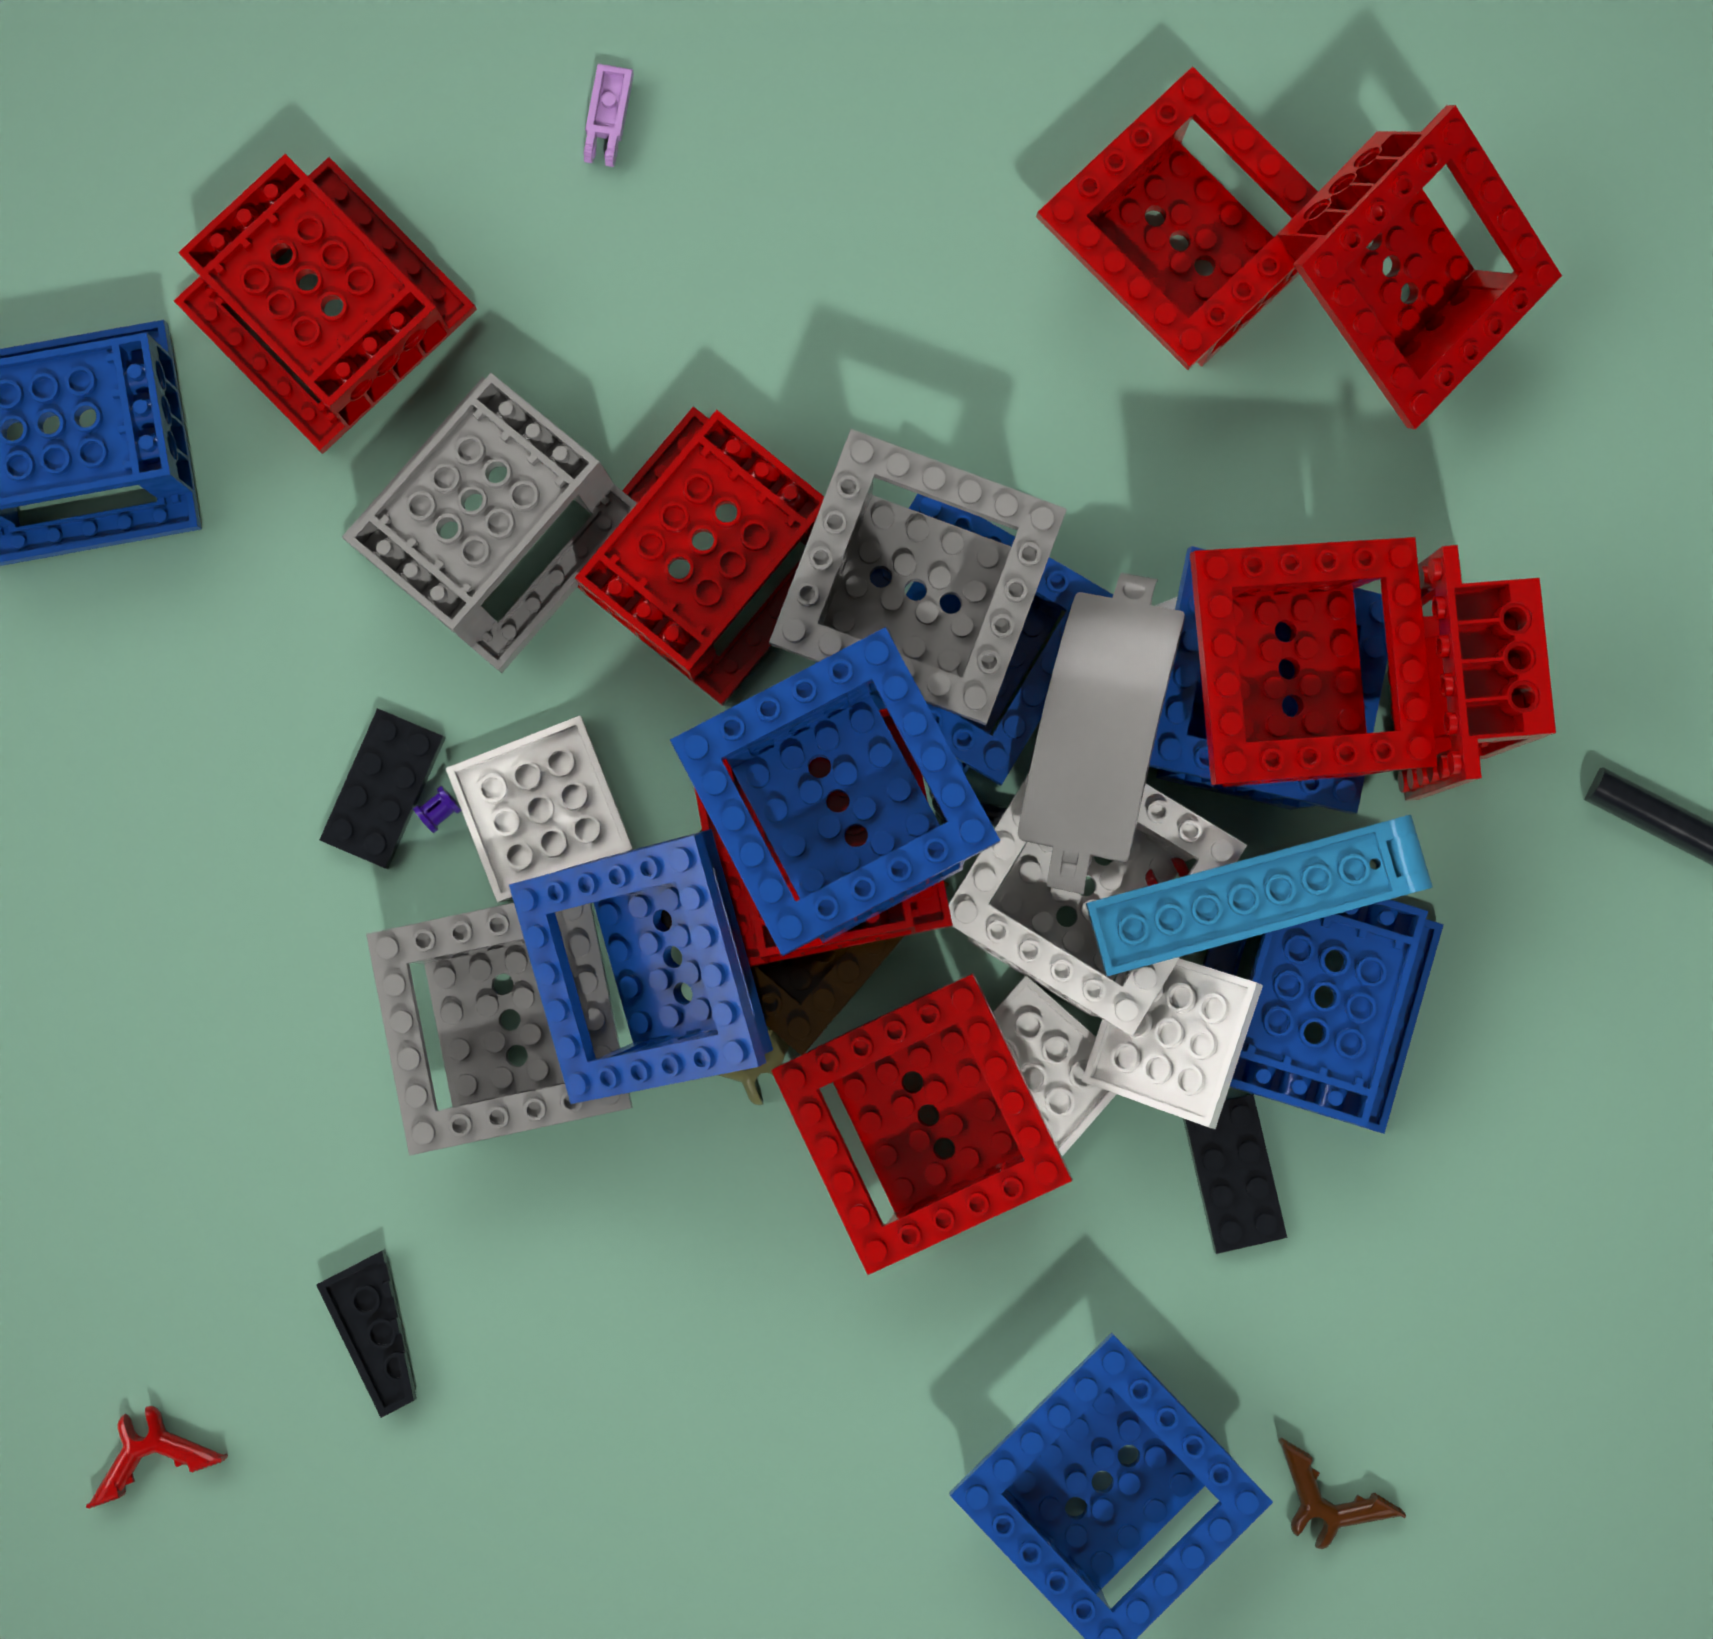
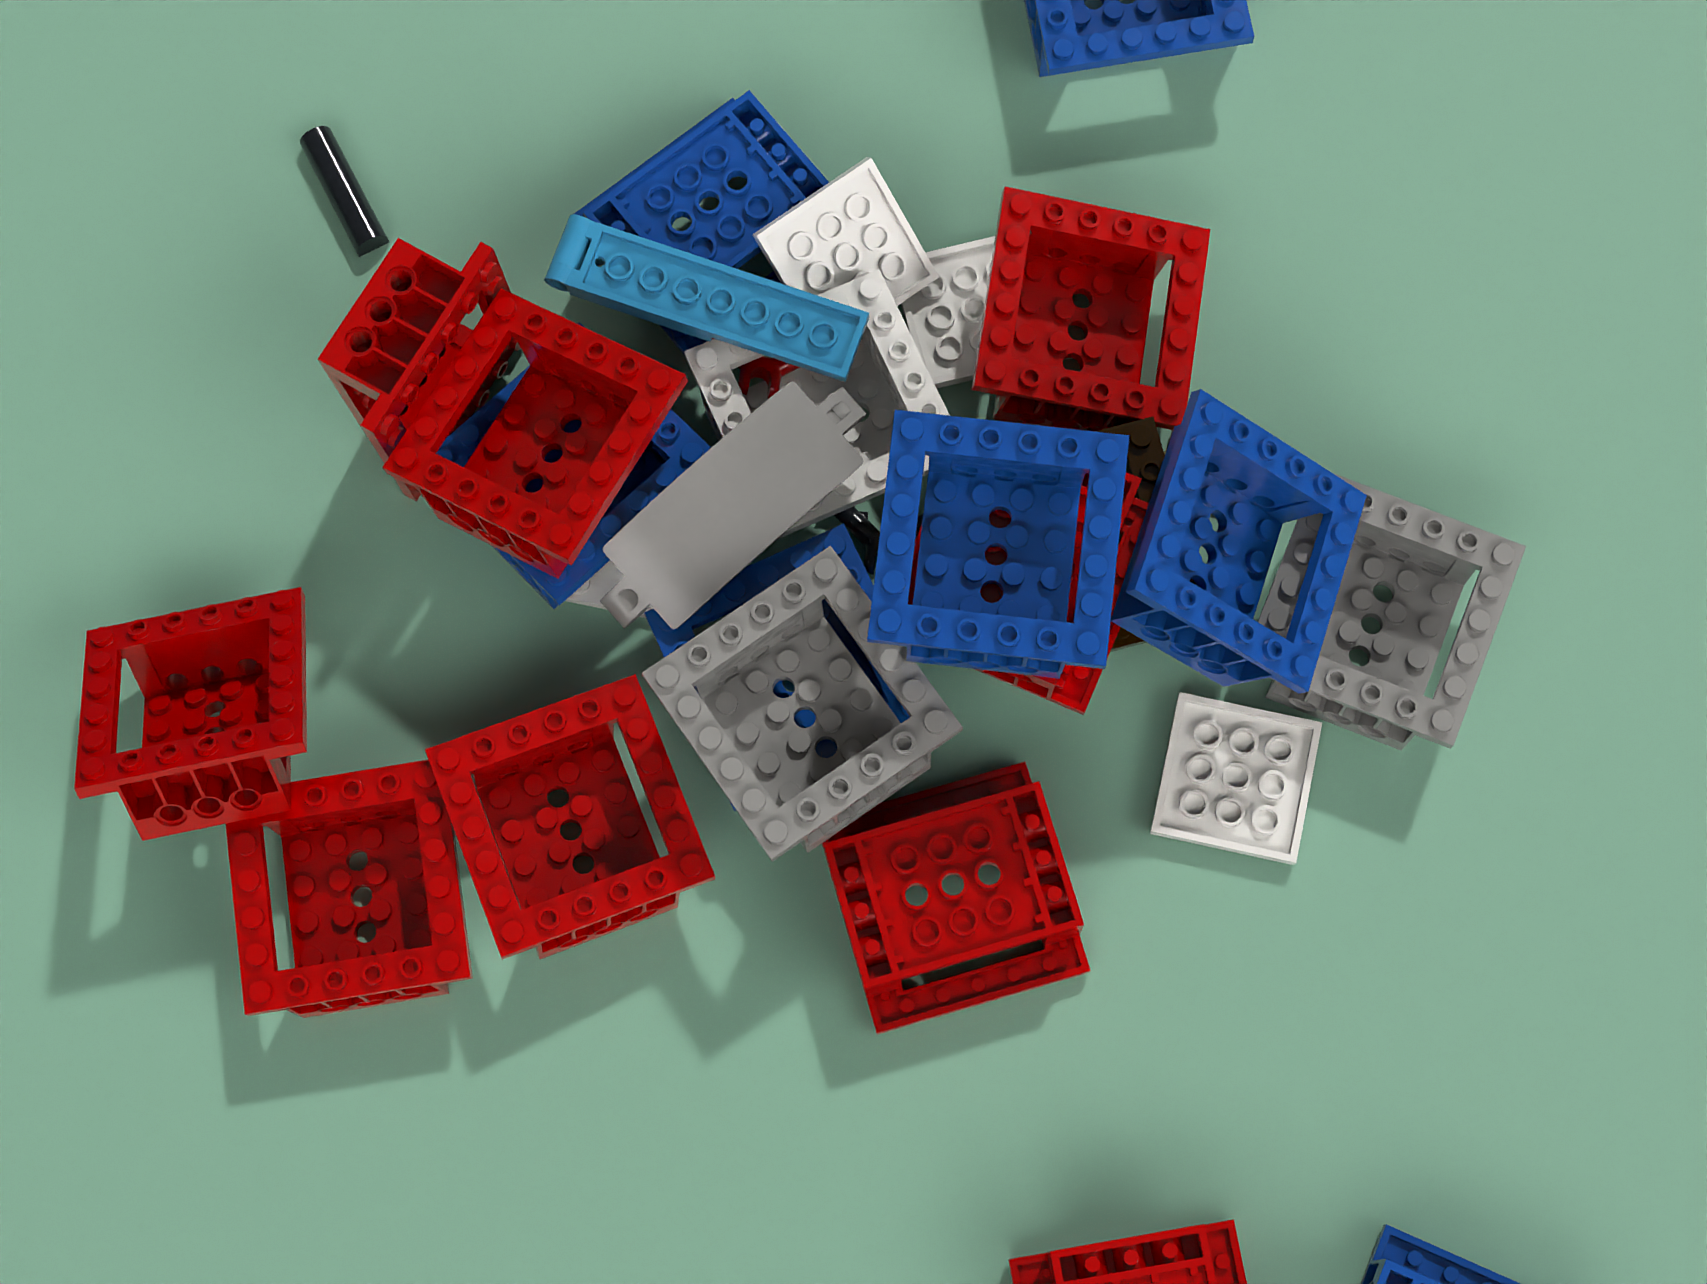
camera: 135 degrees left, 10 degrees down
(371, 1329) = (1638, 460): black wing -> none
(382, 788) = (1361, 886): black plate -> none
(437, 809) = (1335, 827): dark purple bush -> none
(459, 573) = (1136, 1106): light grey plate -> none
(1007, 434) = (572, 751): none -> red plate
(1236, 1178) = (873, 127): black plate -> none

